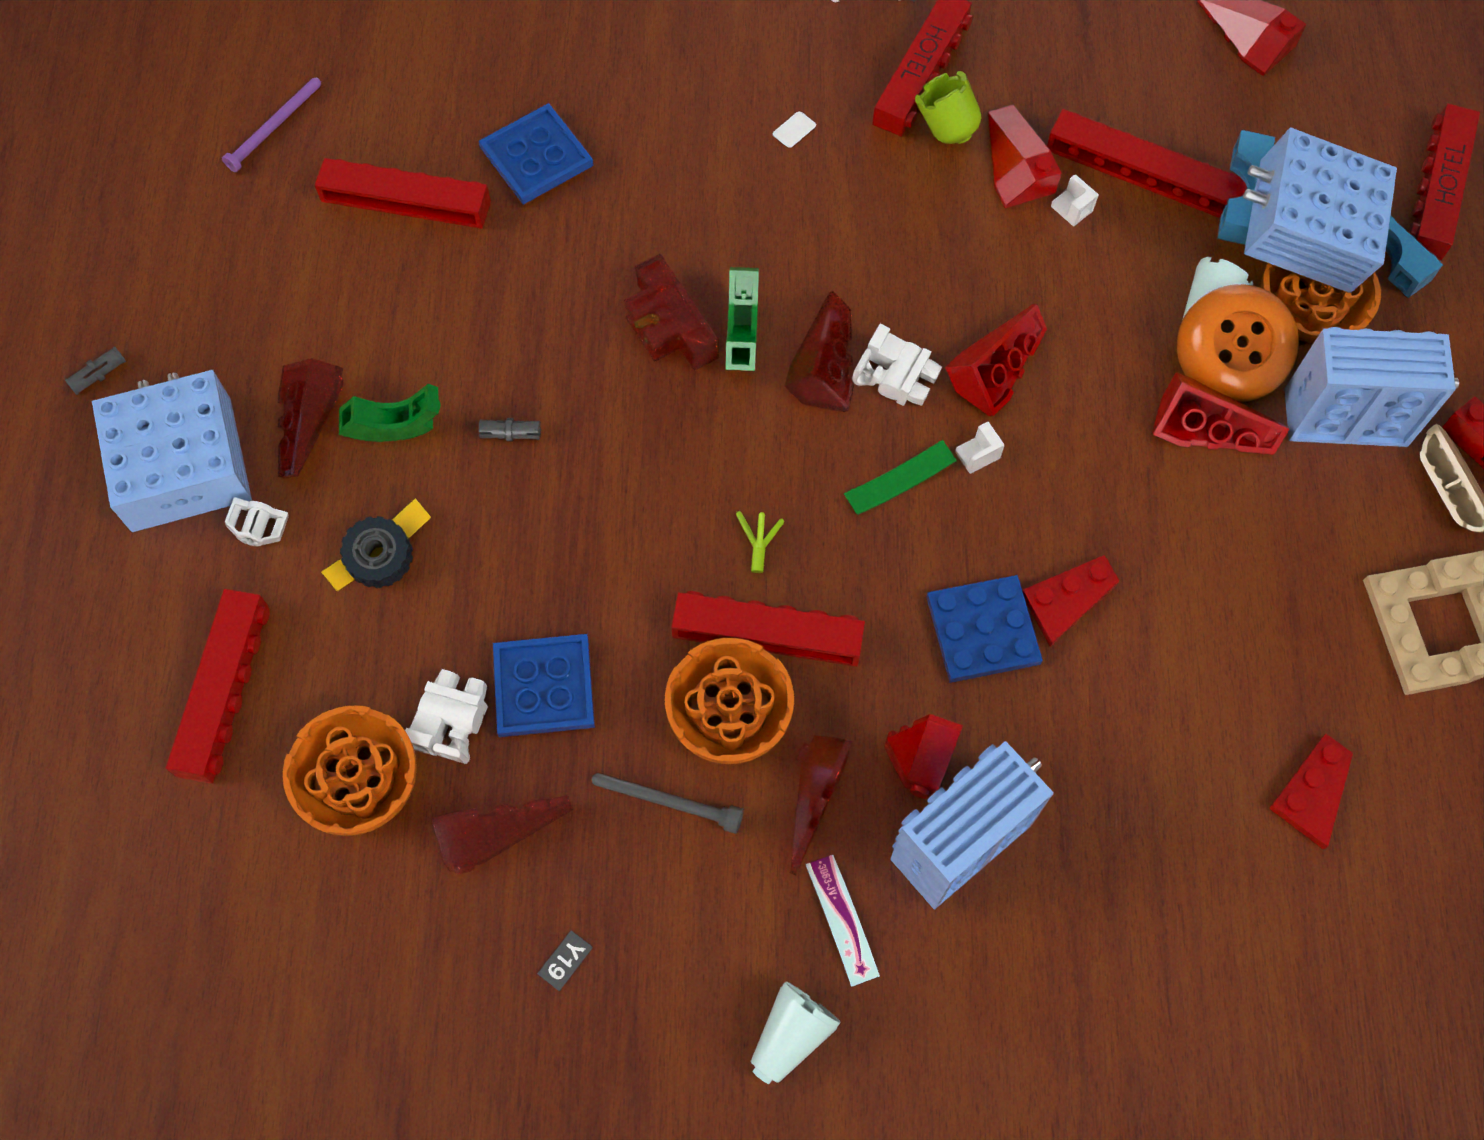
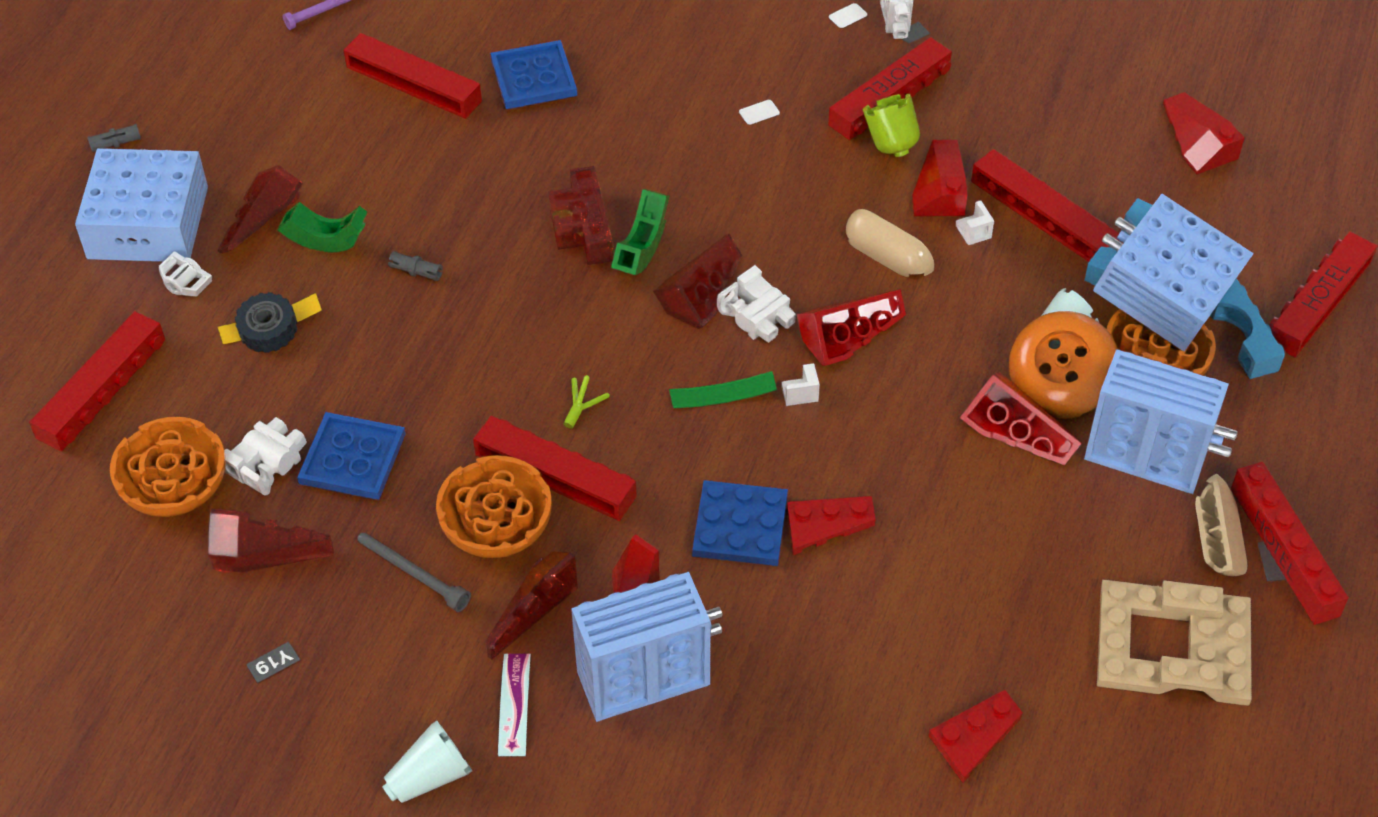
camera: 20 degrees right, 15 degrees down
(996, 251) = (888, 244): none -> tan brick

